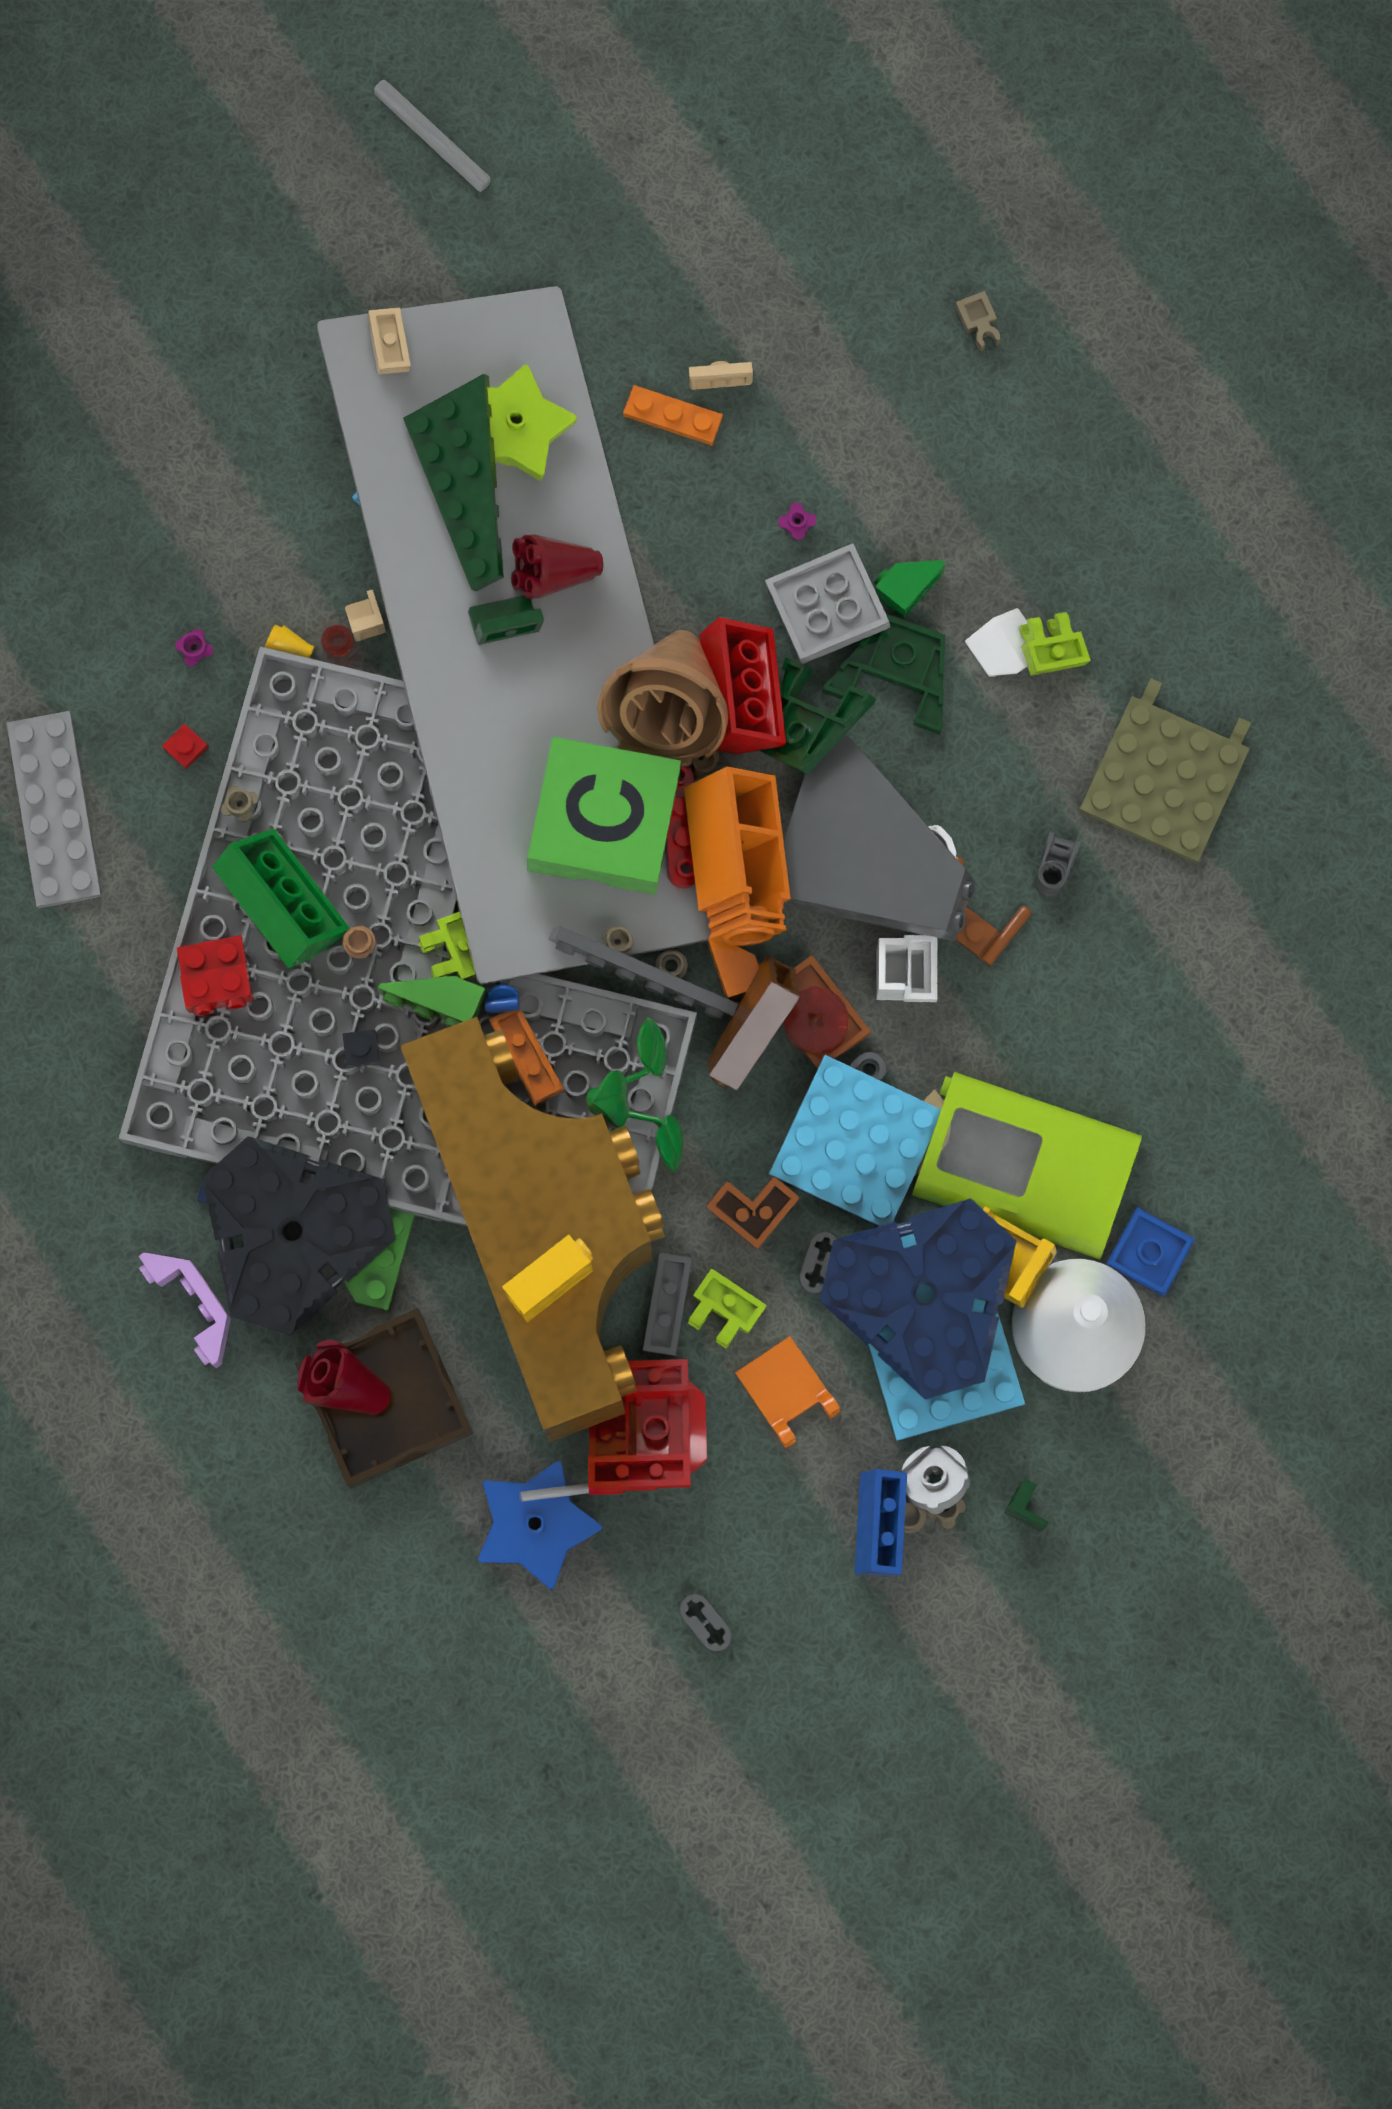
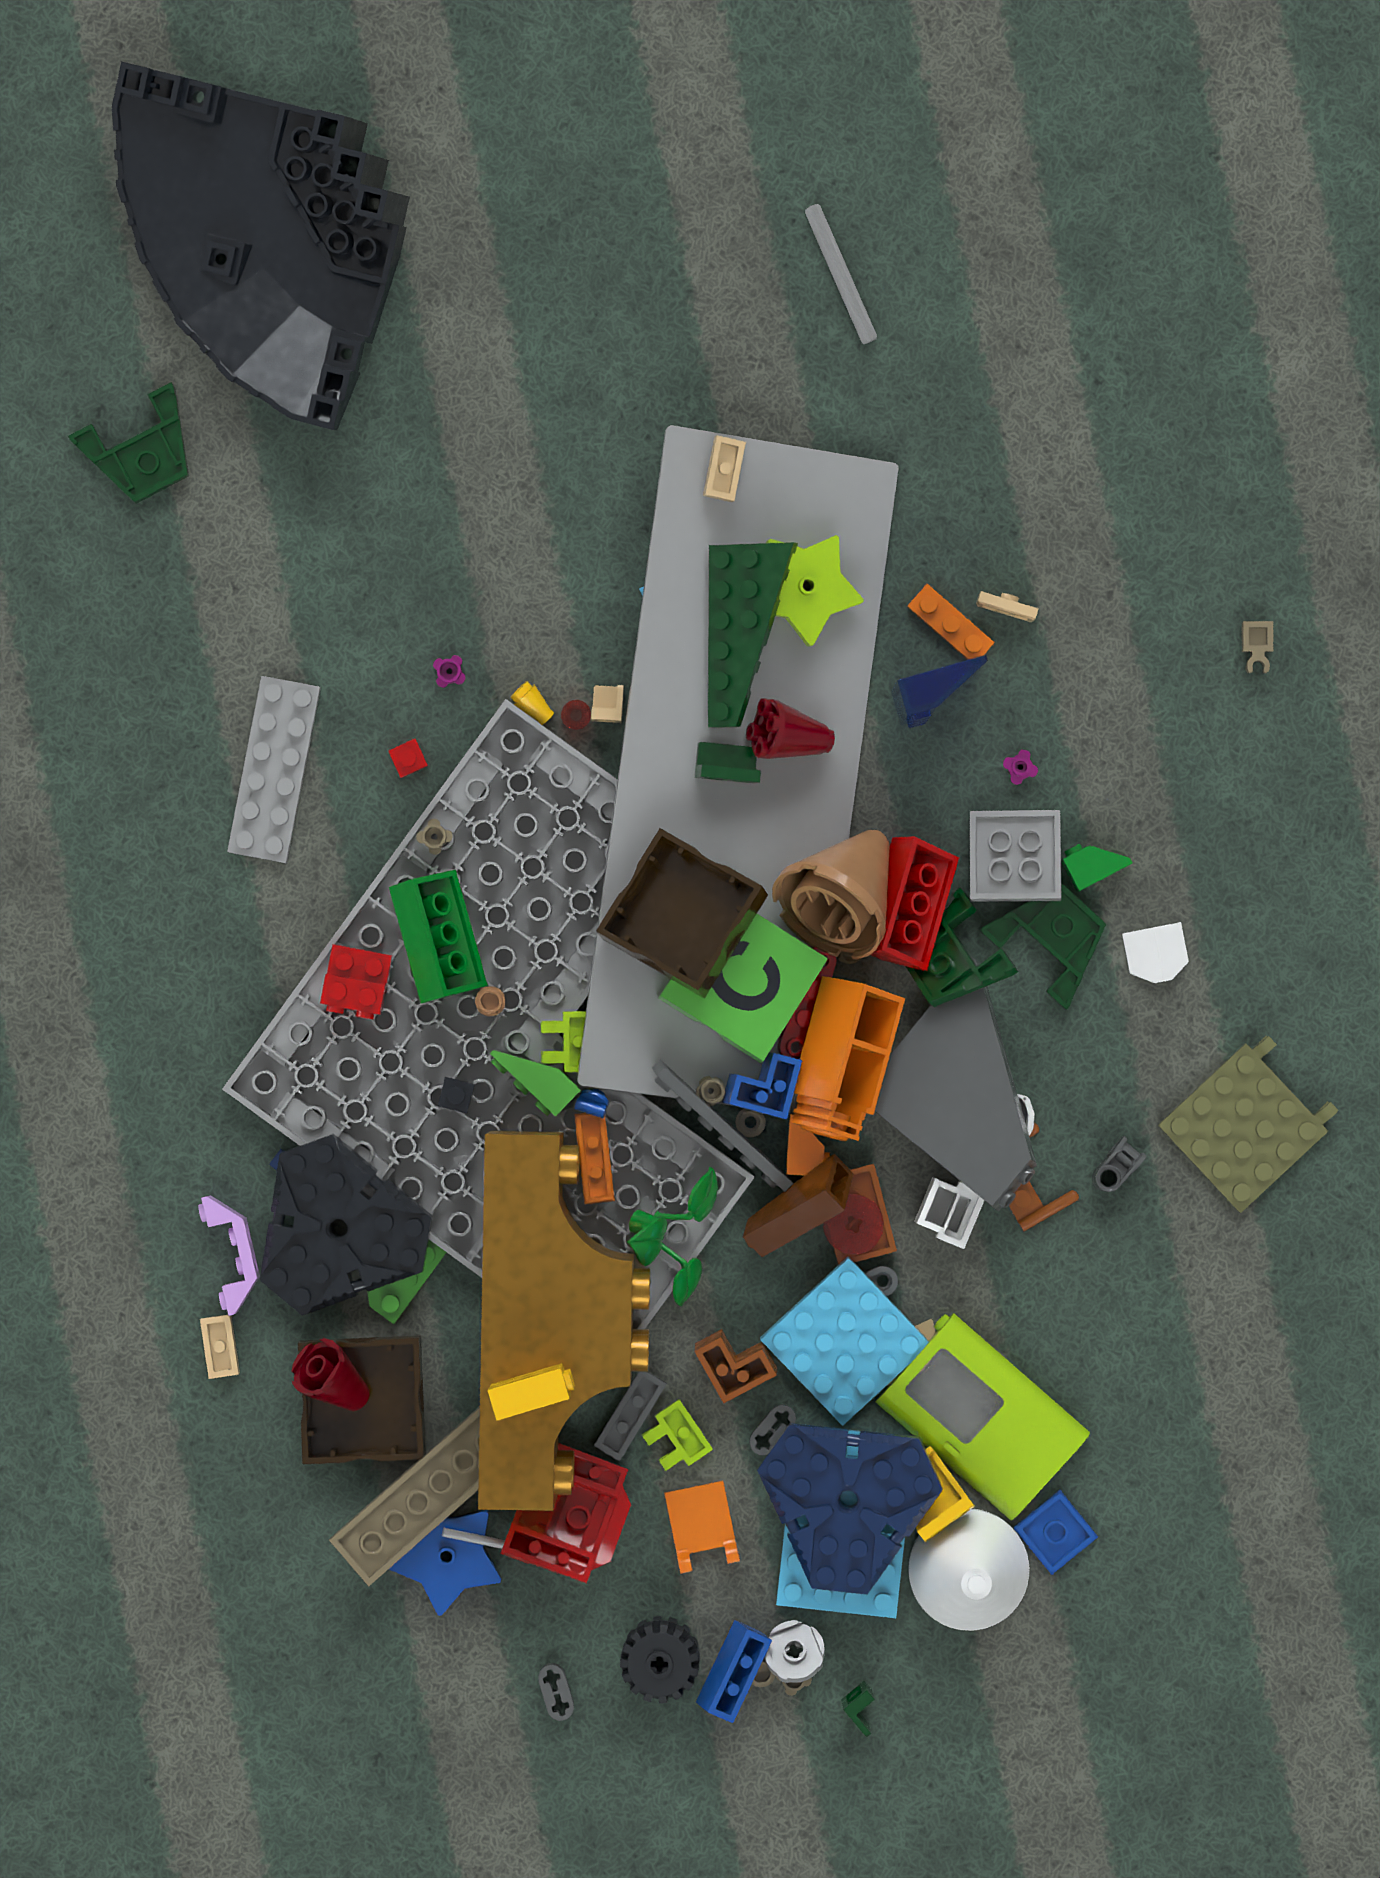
camera: 20 degrees right, 10 degrees up
(216, 1404) = (219, 1346): none -> tan plate
(479, 1477) = (413, 1503): none -> dark tan plate
(516, 768) = (682, 913): none -> dark brown tile
(676, 920) = (771, 1092): none -> blue brick
(677, 466) = (926, 692): none -> clear blue slope
(789, 1563) = (678, 1652): none -> black wheel
(1053, 653) = (1195, 979): lime plate -> none

